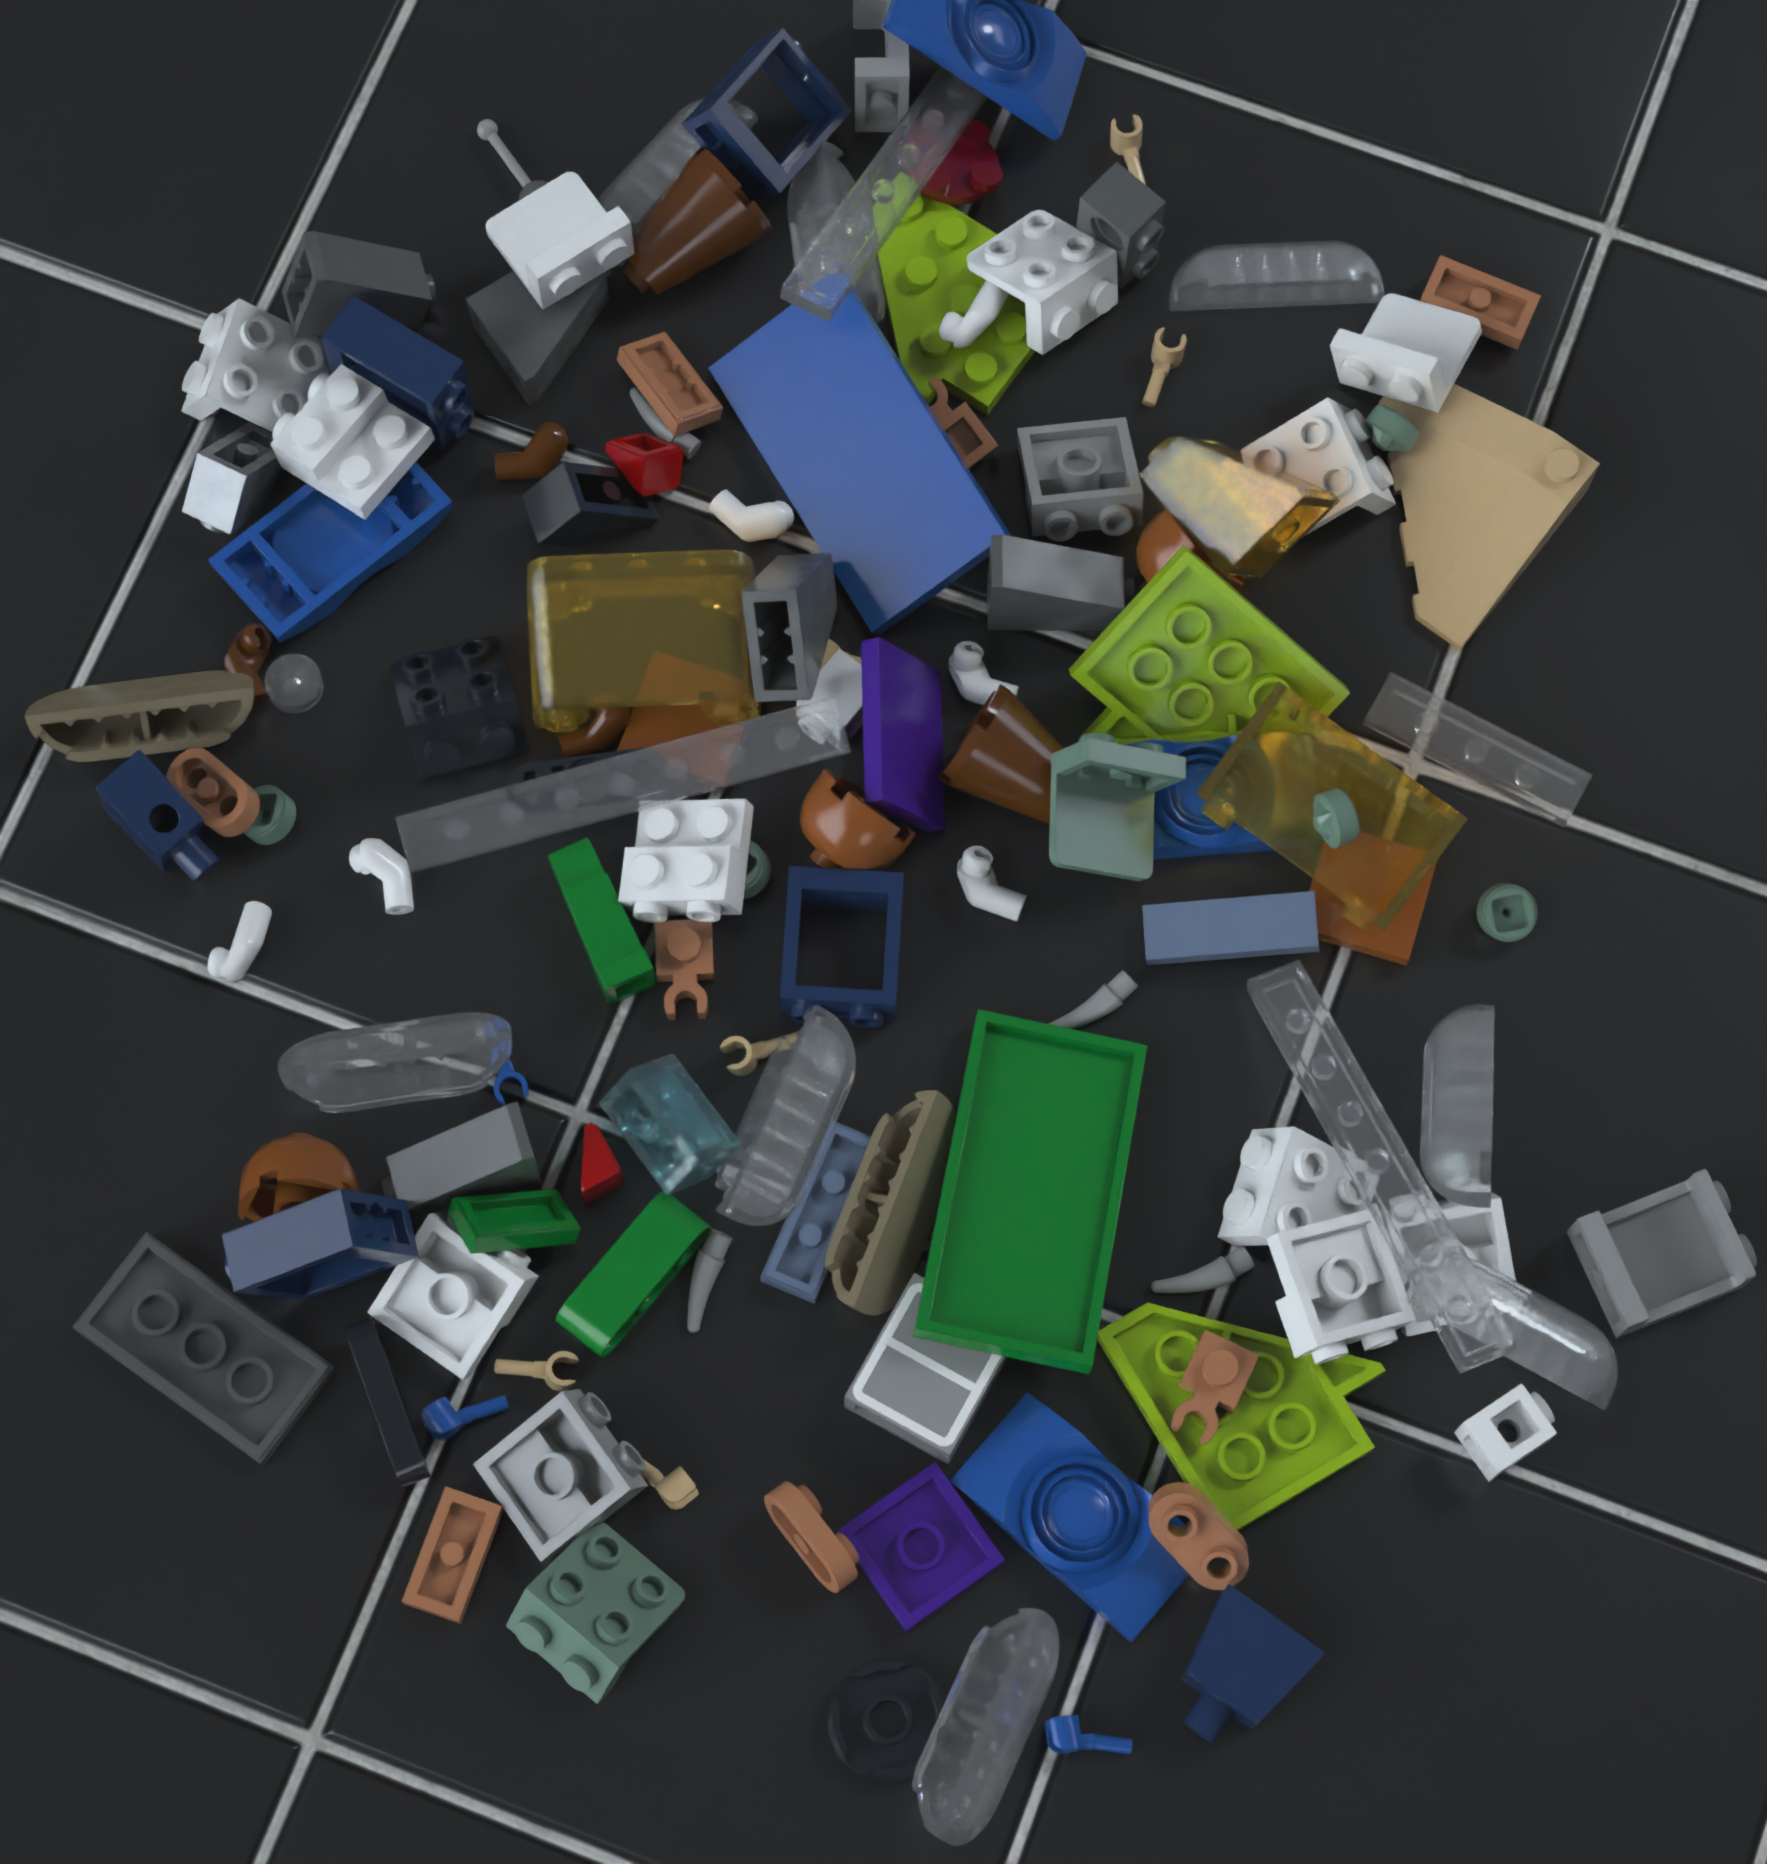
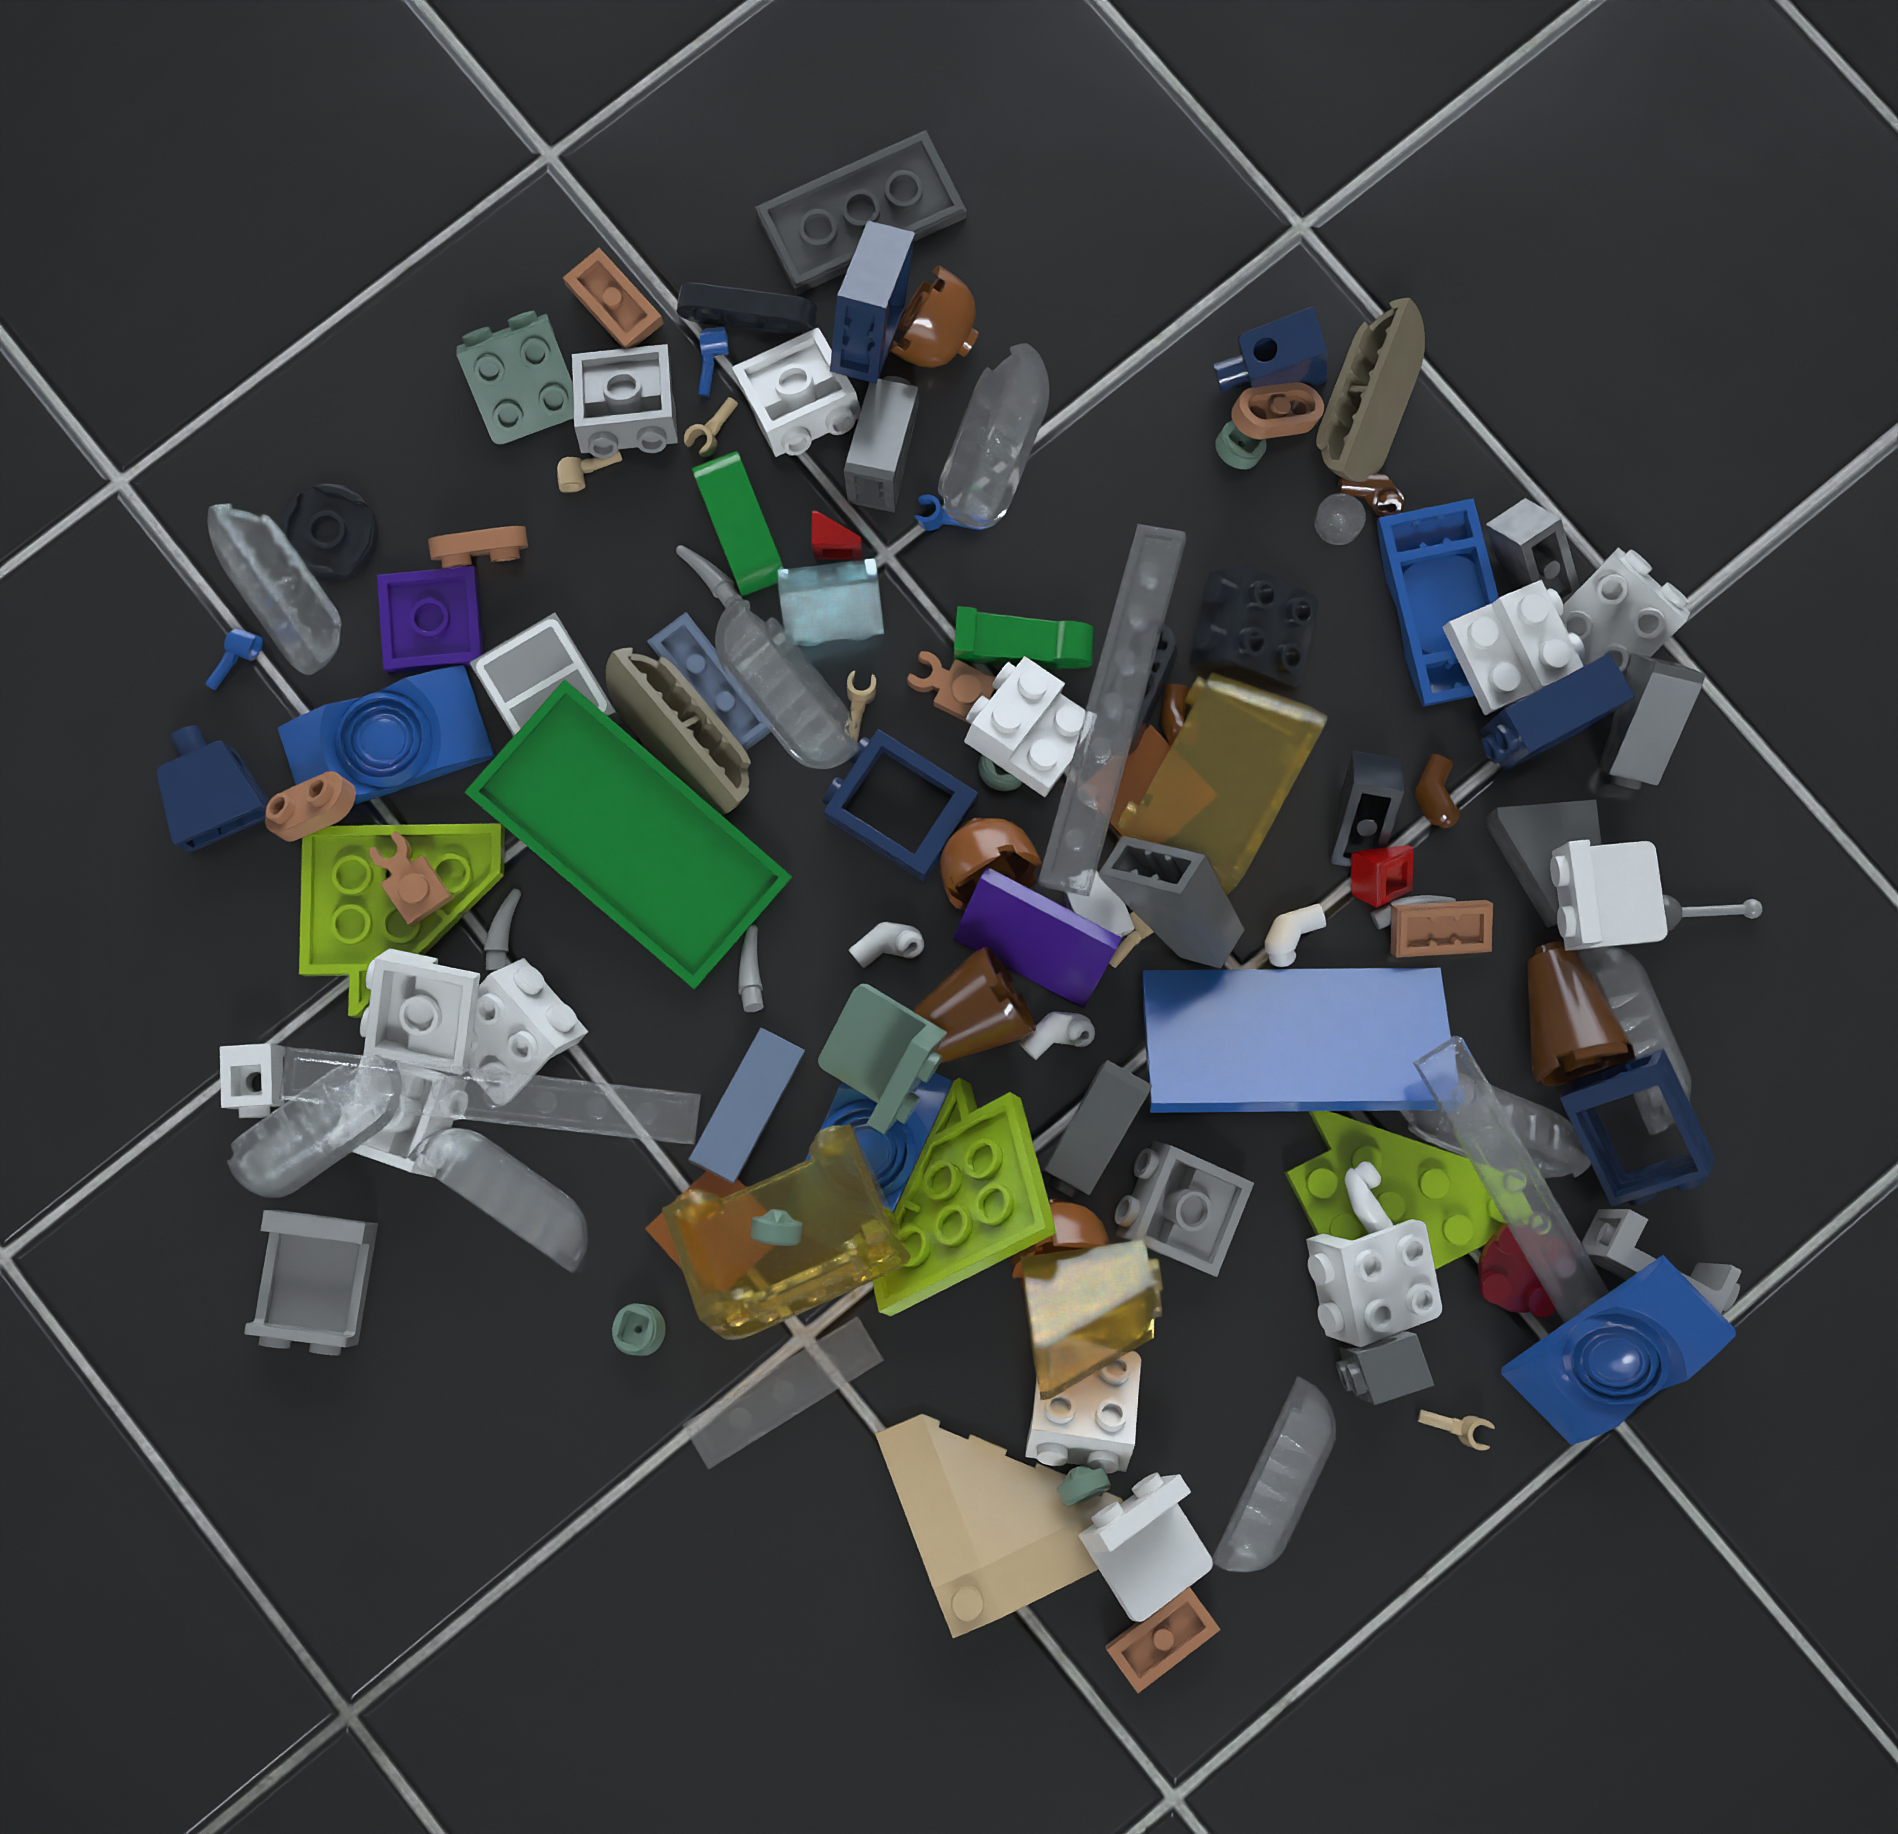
camera: 120 degrees right, 10 degrees up
(246, 944) = (1147, 382): white arm -> none
(390, 867) = (1152, 511): white arm -> none
(513, 1221) = (820, 453): green tile -> none
(962, 427) = (1275, 1132): nougat plate -> none
(1164, 360) = (1248, 1336): tan hand -> none

